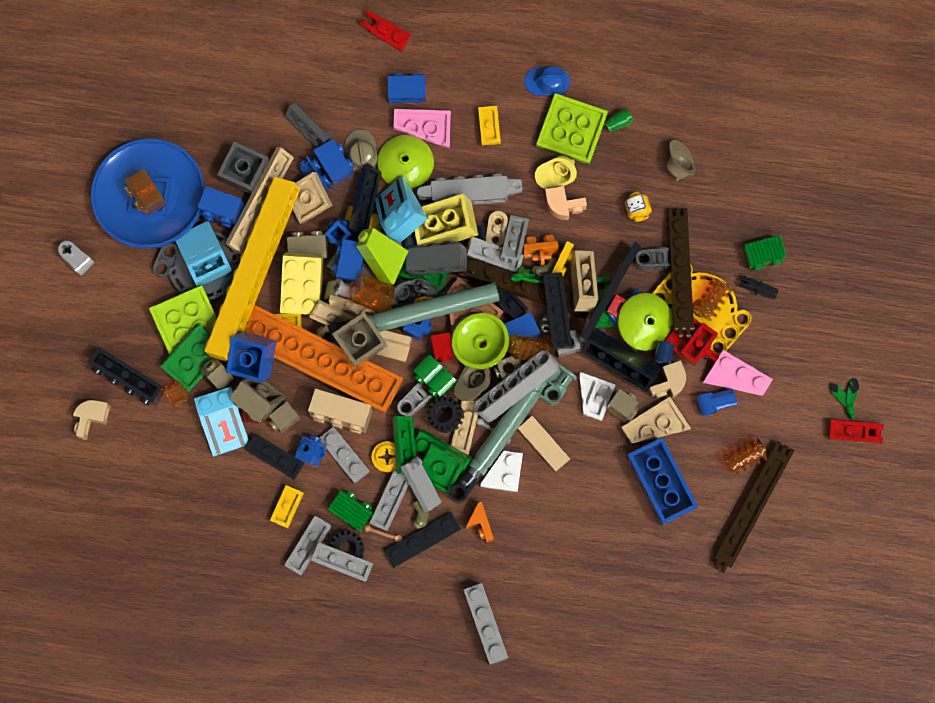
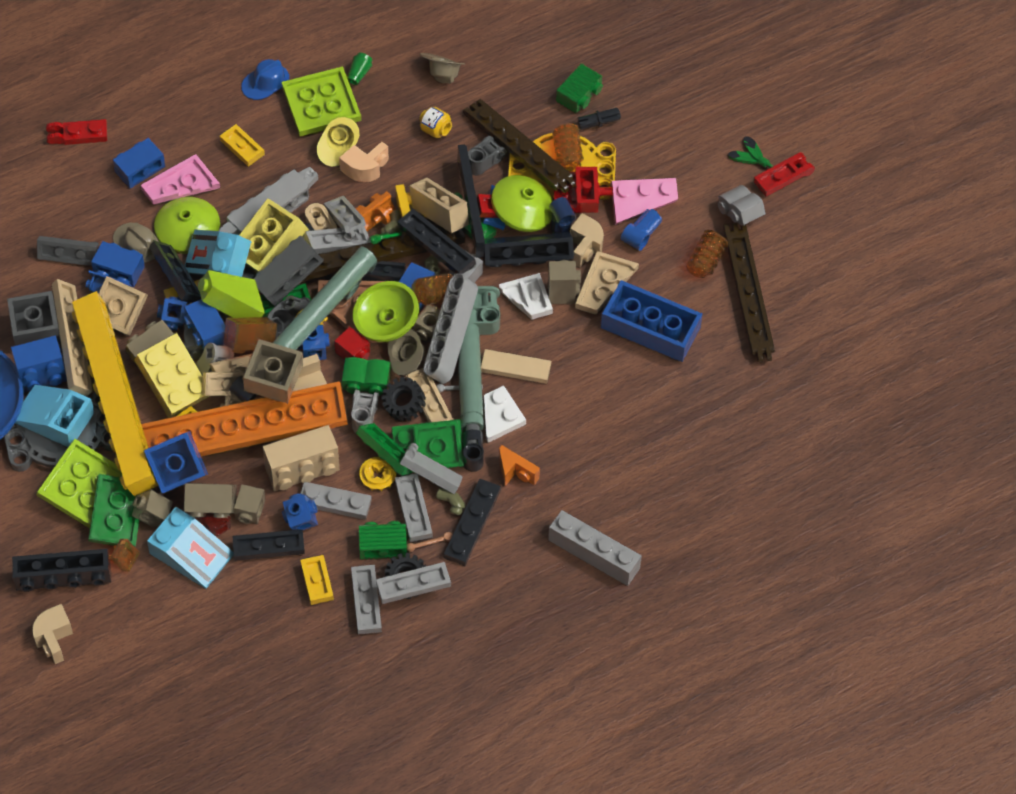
camera: 40 degrees left, 20 degrees down
(801, 436) = (741, 205): none -> light grey brick

